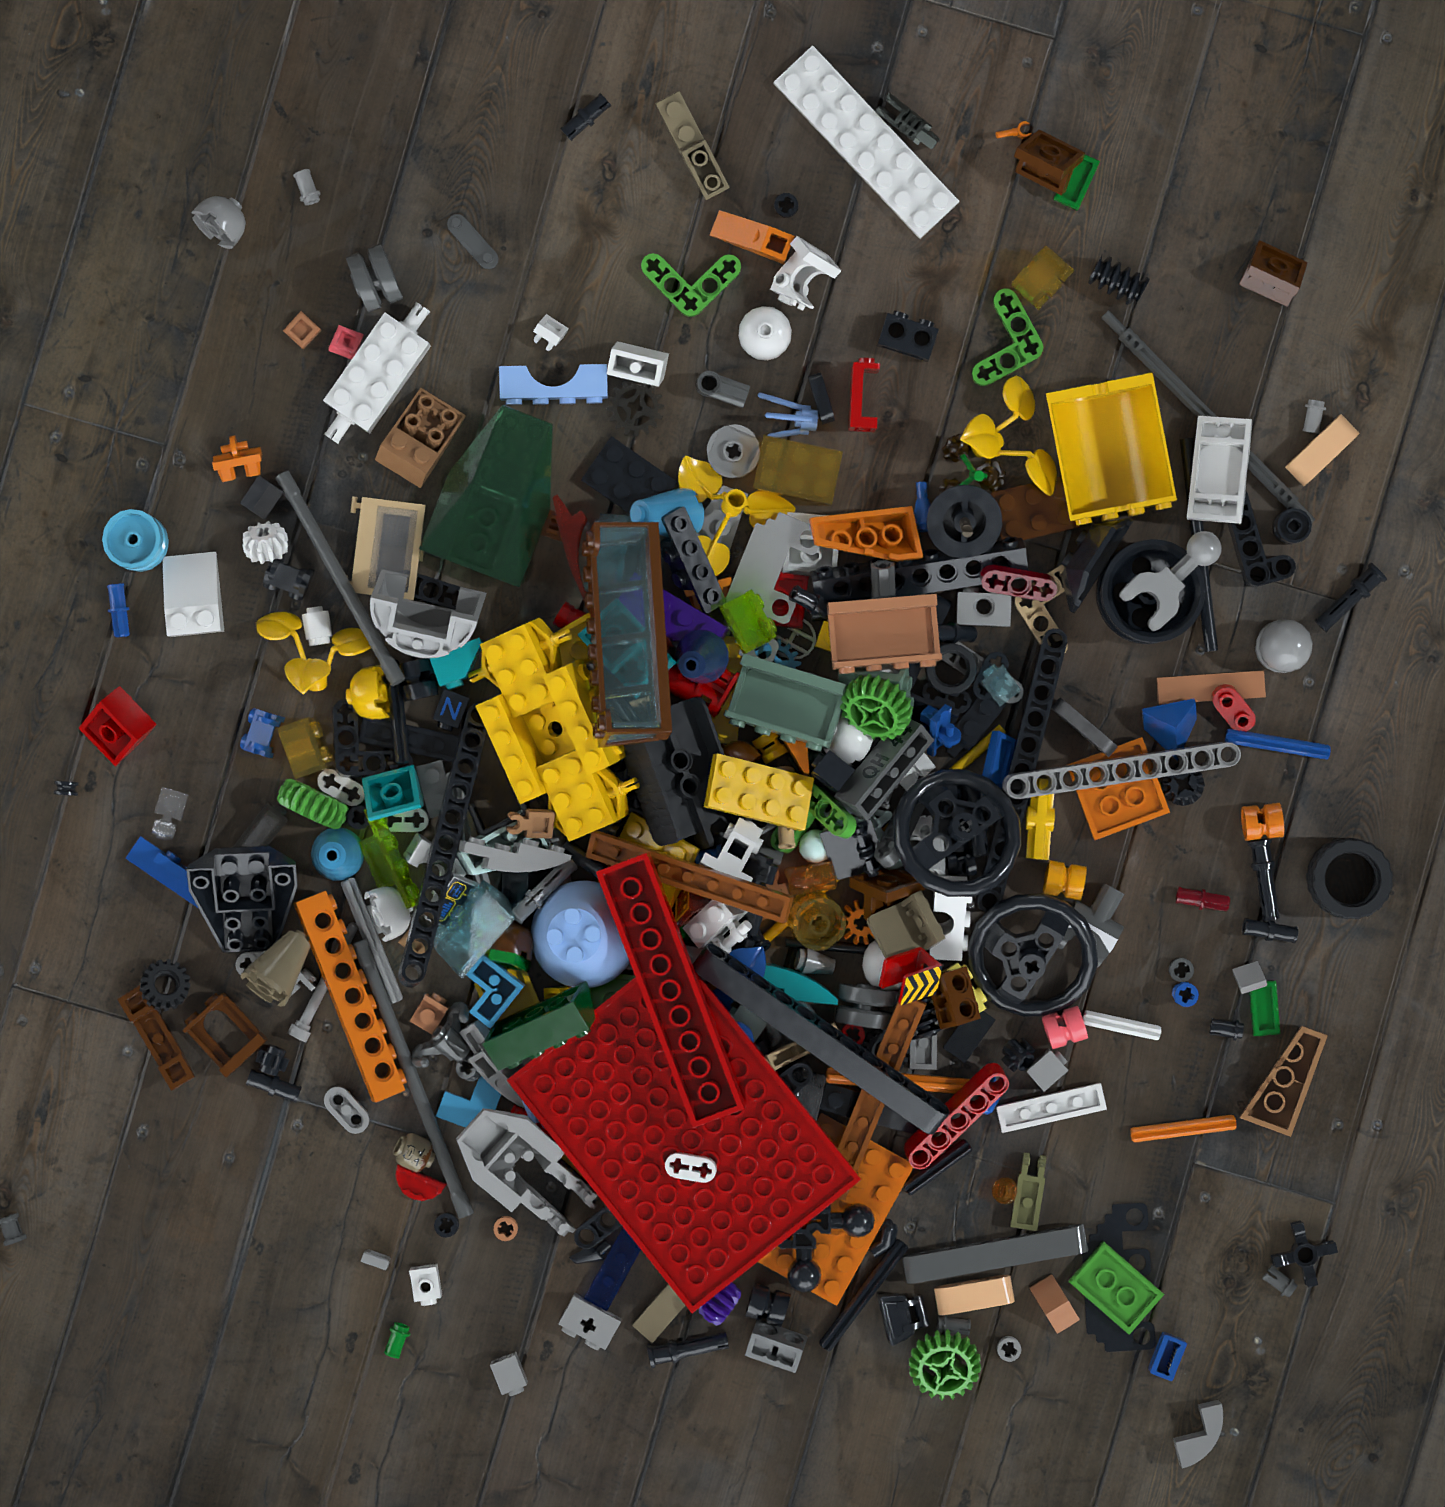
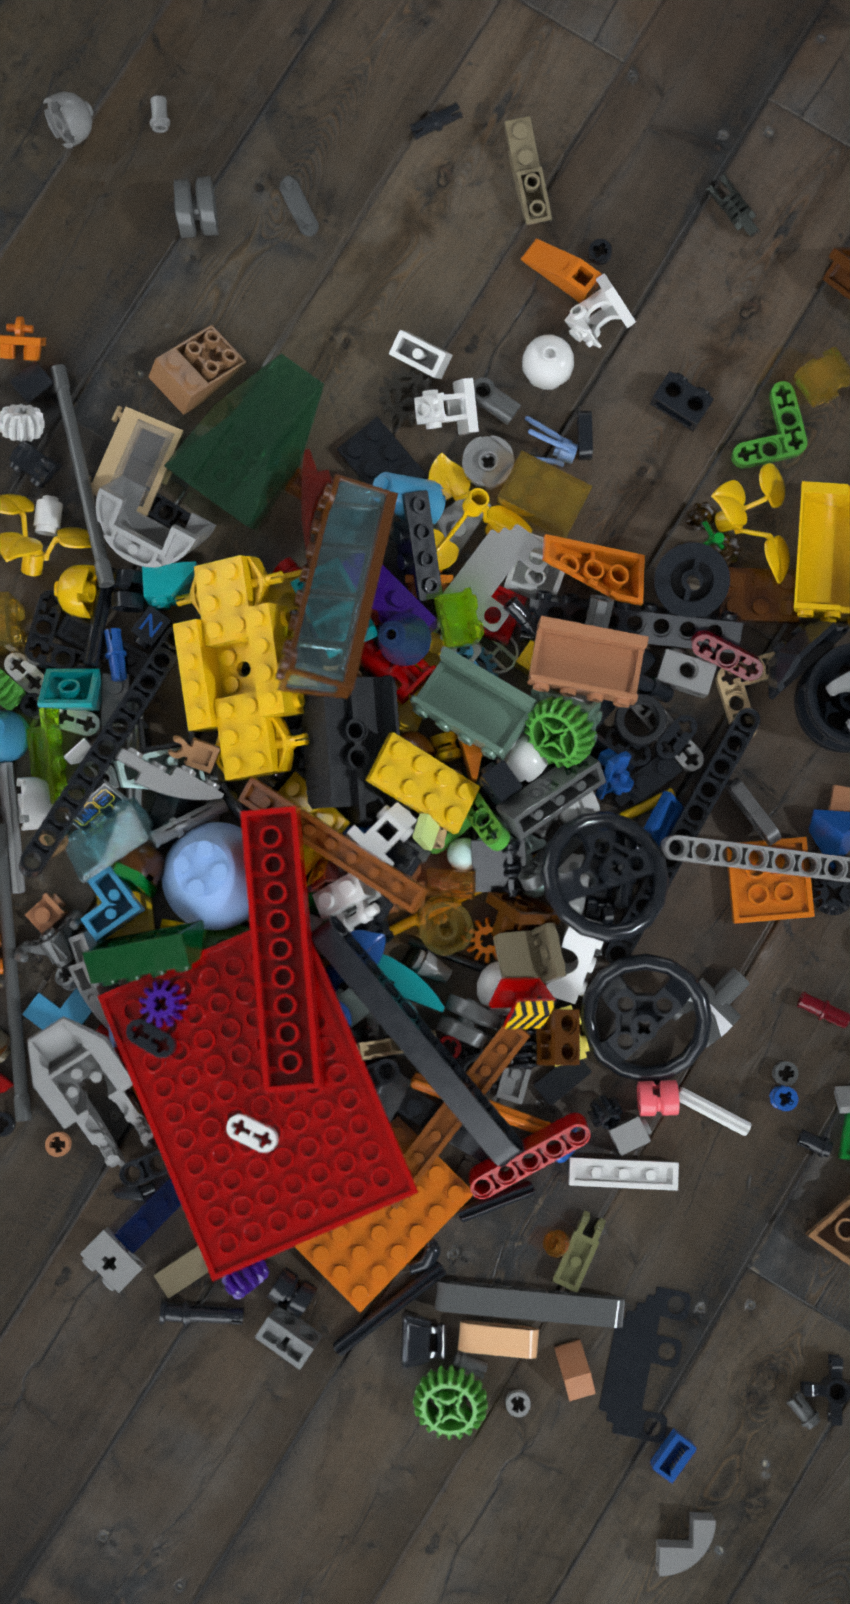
camera: 15 degrees right, 5 degrees down
(302, 330) = (116, 242): nougat tile -> none
(346, 342) = (153, 263): coral tile -> none
(377, 373) = (174, 297): white brick -> none
(425, 746) = (116, 654): none -> blue axle
(509, 1374) = (18, 1290): light grey brick -> none
(550, 330) = (348, 303): white tile -> none
(563, 1073) = (172, 1002): none -> dark purple gear
(572, 1099) = (148, 1044): none -> black beam
(588, 384) = (367, 361): light blue arch -> none
(690, 406) = (459, 407): none -> white tile
(695, 291) = (492, 306): bright green beam -> none
(774, 838) = (425, 831): none -> yellowish green tile
(805, 1273) = (337, 1271): black piece -> none
(856, 422) = (618, 465): red panel -> none
(866, 142) = (690, 215): white plate -> none
(921, 506) = (652, 562): blue cone -> none
(999, 684) = (683, 745): clear light blue bracket -> none
(1014, 132) = (831, 241): orange hand -> none
(1040, 824) = (685, 892): yellow piece -> none
(1064, 880) = (697, 954): light orange wheel -> none
(1116, 1287) = (640, 1371): bright green tile -> none
(1183, 1128) = (747, 1230): orange axle -> none

